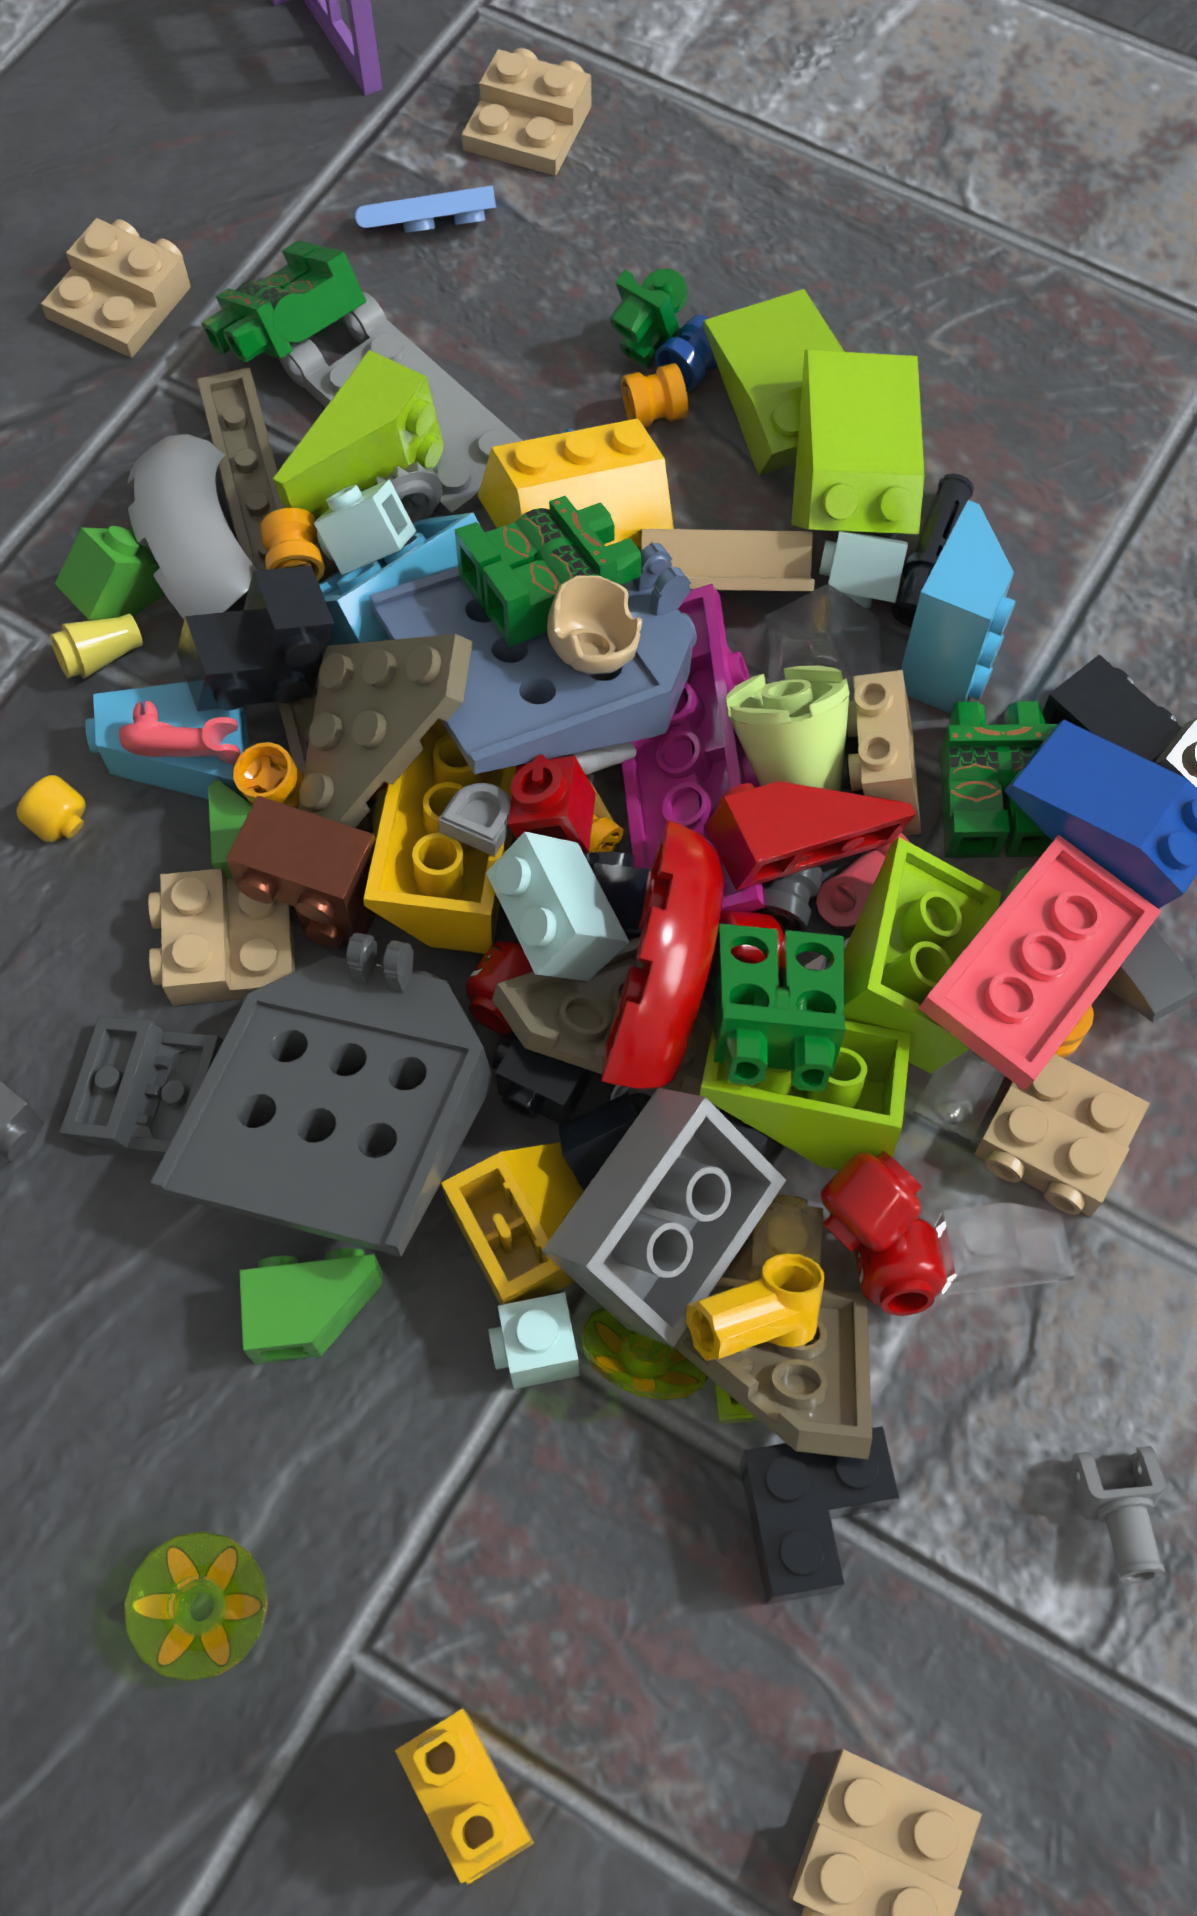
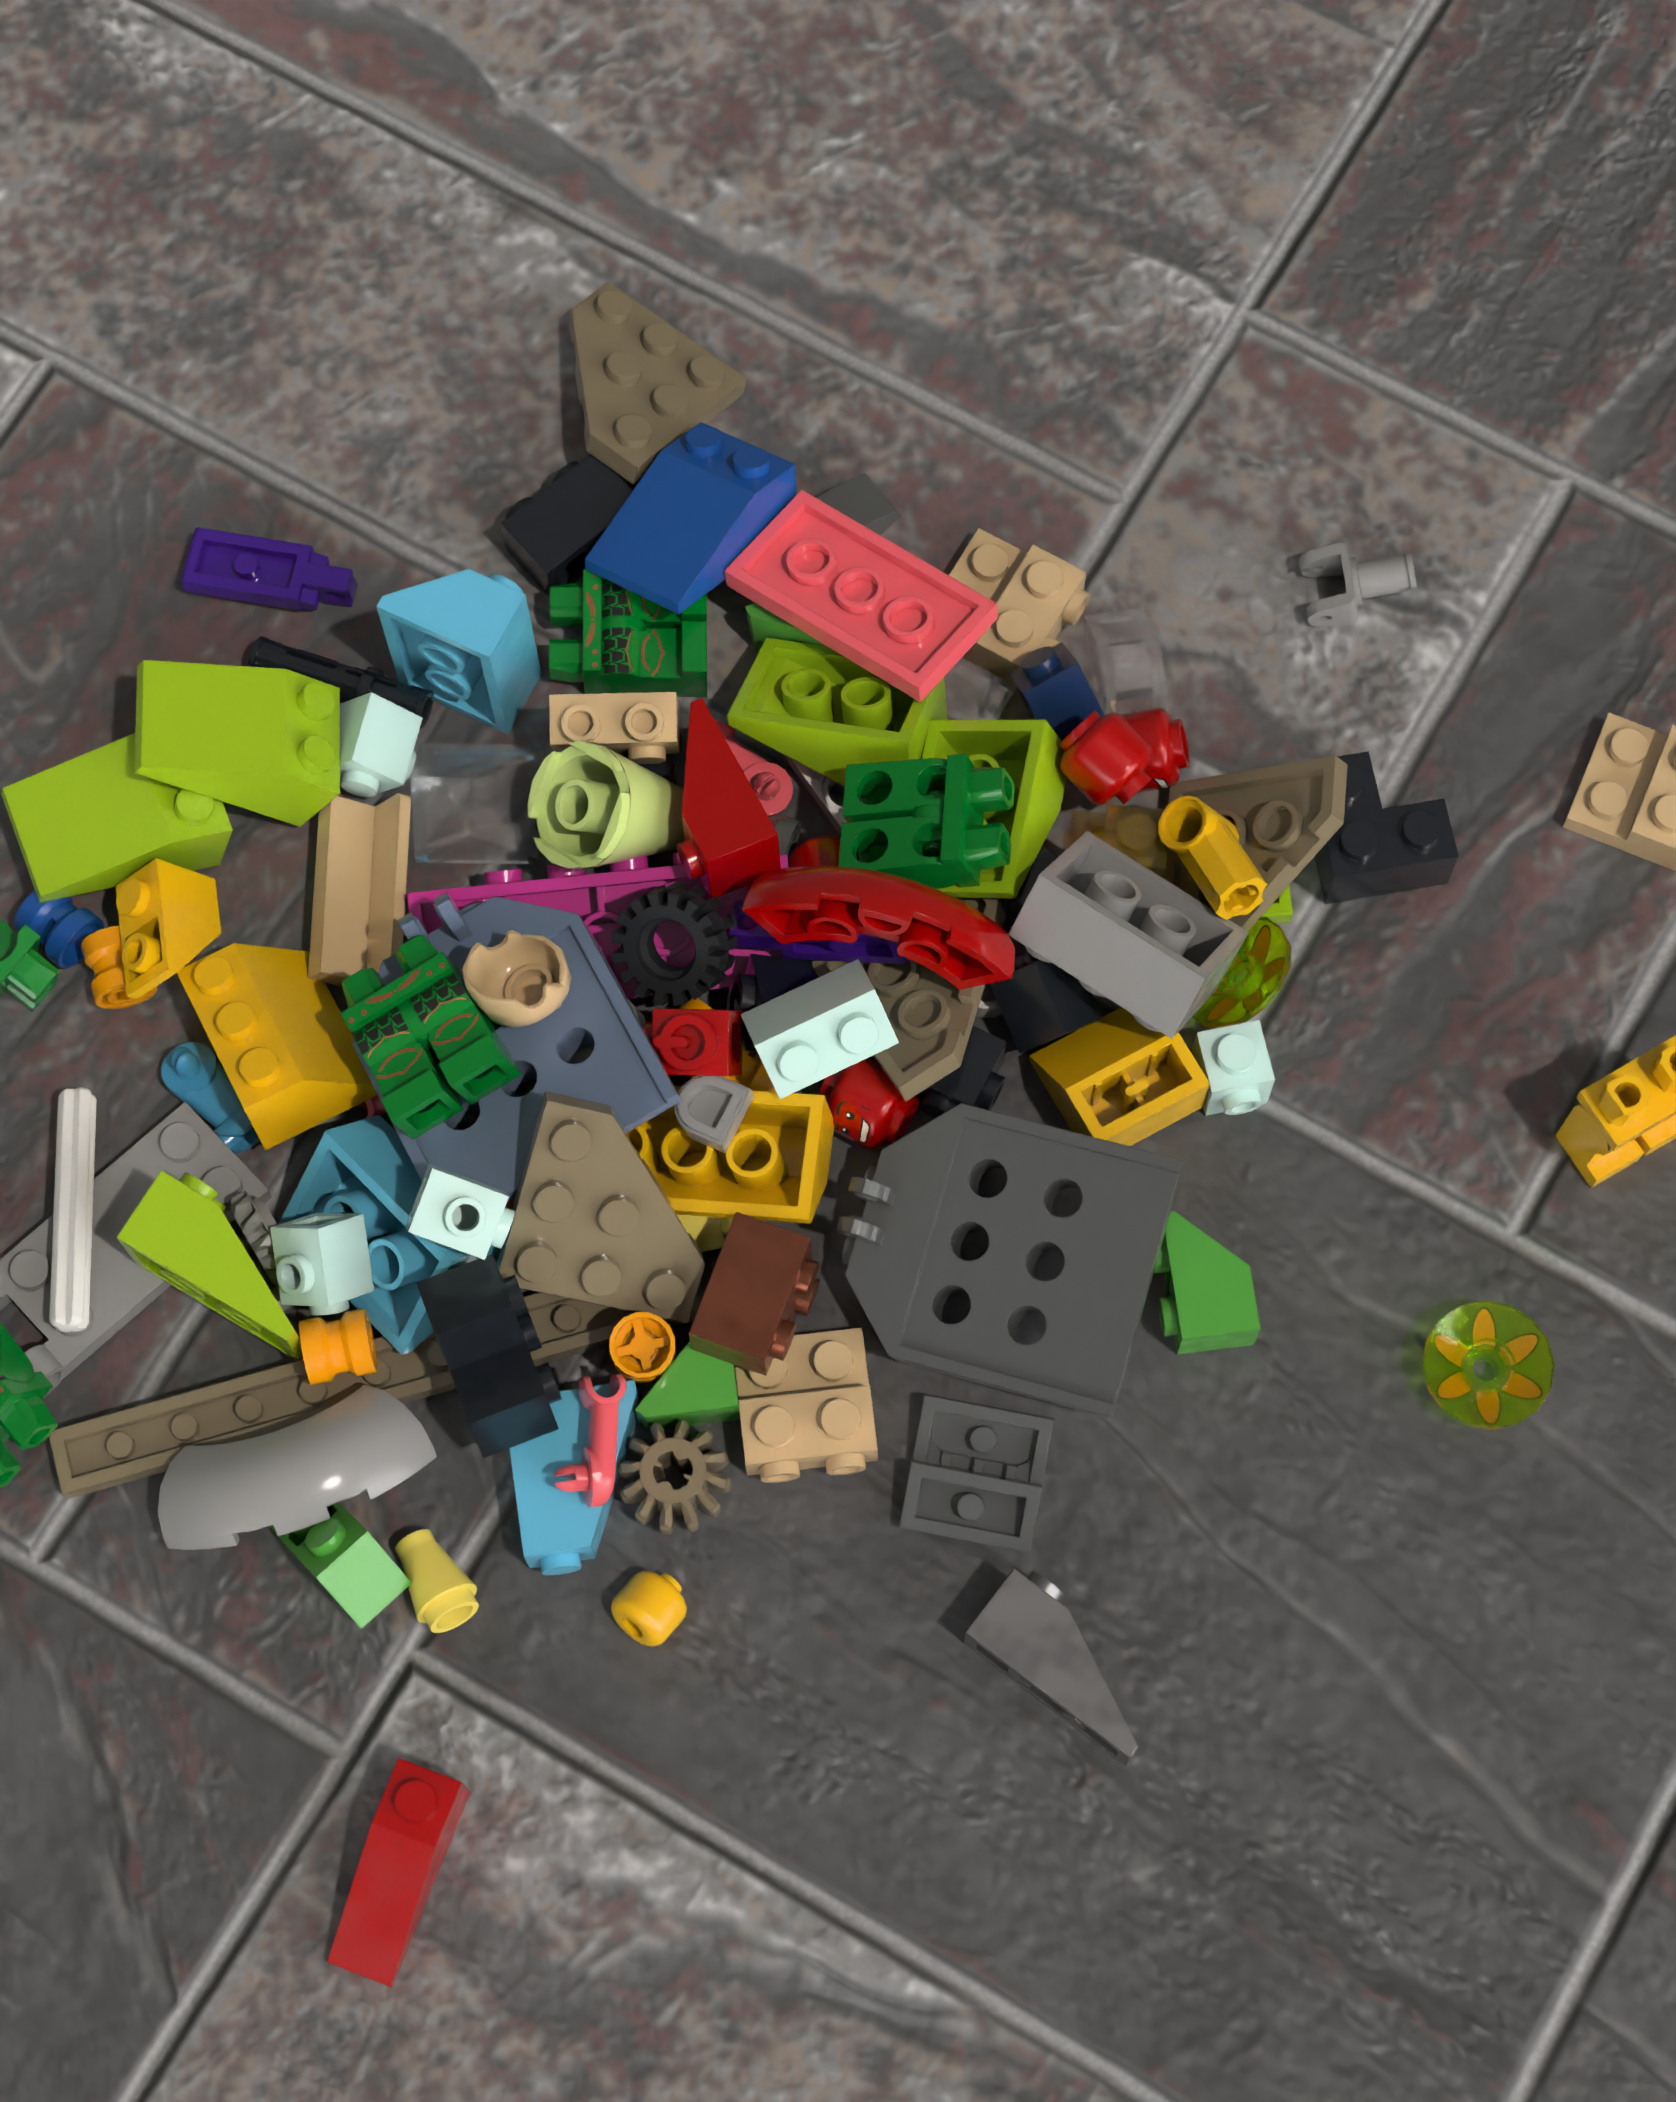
camera: 90 degrees left, 5 degrees up
(140, 821) = (688, 1458): none -> dark tan gear
(369, 588) = (460, 1212): none -> light aqua brick
(447, 367) = (73, 1210): none -> white axle
(658, 787) = (646, 964): none -> black tyre
(686, 416) = (164, 922): none -> yellow slope
(955, 1165) = (1055, 689): none -> dark blue brick
(1038, 487) = (264, 572): none -> dark purple hinge

